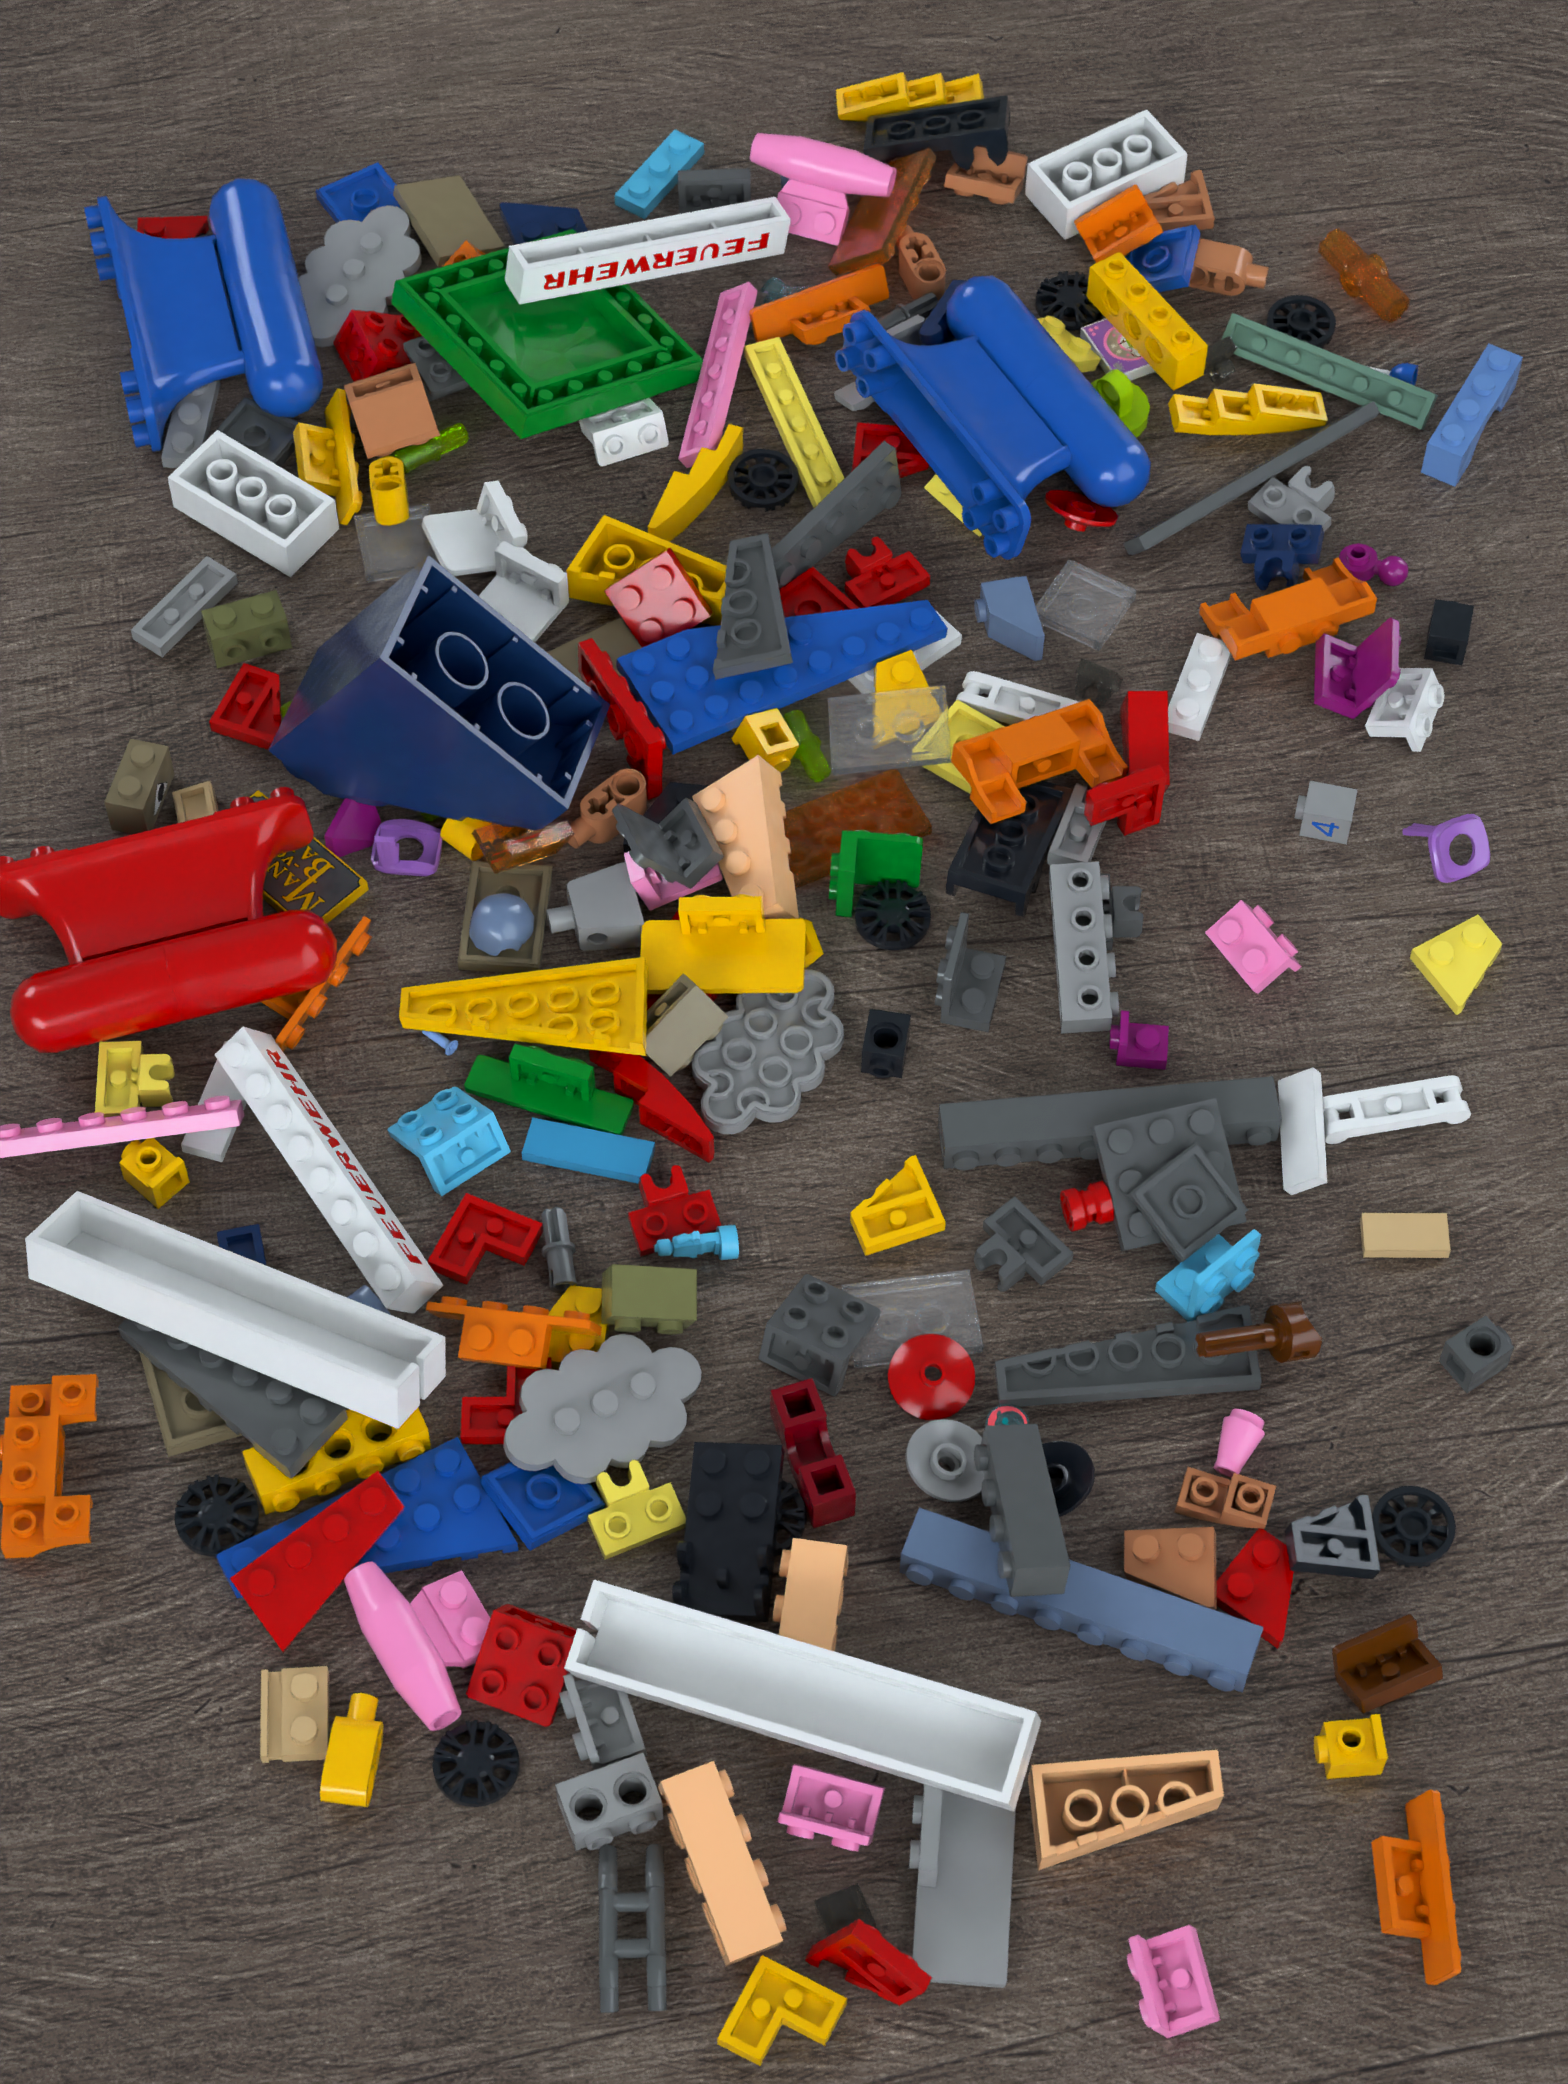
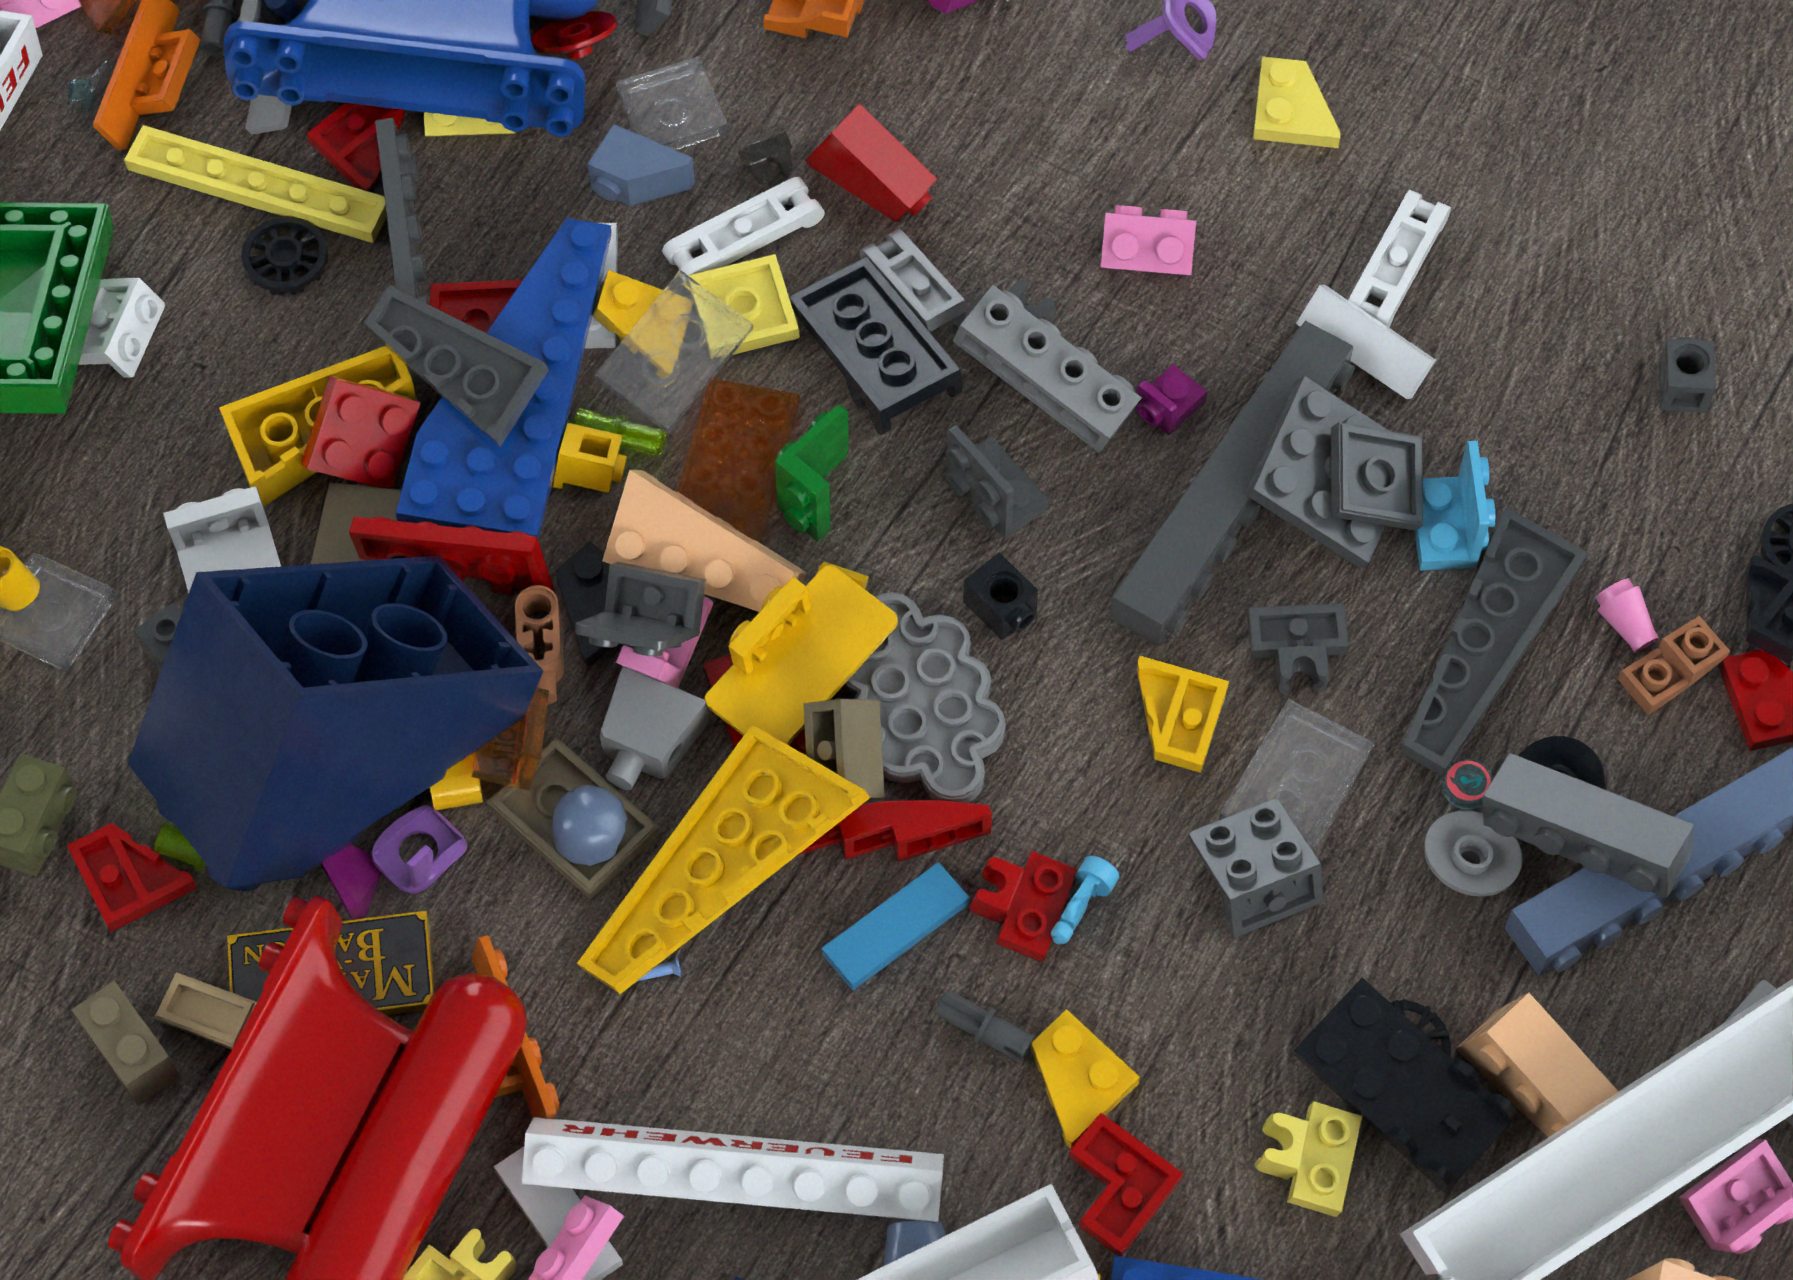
camera: 50 degrees left, 5 degrees up
(451, 1138) = (779, 1034): medium azure bracket -> none
(468, 538) = (120, 532): white bracket -> none
(481, 1228) = (904, 1080): red plate -> none
(506, 1336) = (1054, 1133): orange bracket -> none
(540, 1502) = (1235, 1222): blue tile -> none
(550, 1088) = (804, 911): green bracket -> none
(602, 1408) = (1191, 1106): light grey plate -> none
(649, 1298) = (1112, 983): olive brick -> none
(692, 493) = (244, 322): yellow slope -> none
(718, 372) = (134, 205): bright pink plate -> none
(815, 1467) = (1348, 950): dark red arch -> none
(883, 579) = (492, 241): red plate -> none
(892, 915) = (864, 494): black wheel -> none
(929, 1398) = (1357, 821): red dish -> none
(1034, 751) = (811, 255): orange bracket -> none
(1085, 1206) = (1303, 559): red wheel -> none
(1132, 799) = (929, 229): red plate -> none
(1174, 1562) = (1709, 748): nougat wing -> none
(1198, 686) = (835, 78): white plate -> none
(1284, 1332) = (1557, 501): reddish brown piece -> none
(1326, 812) = (1064, 86): light grey brick -> none
(1405, 1235) = (1524, 343): tan tile -> none

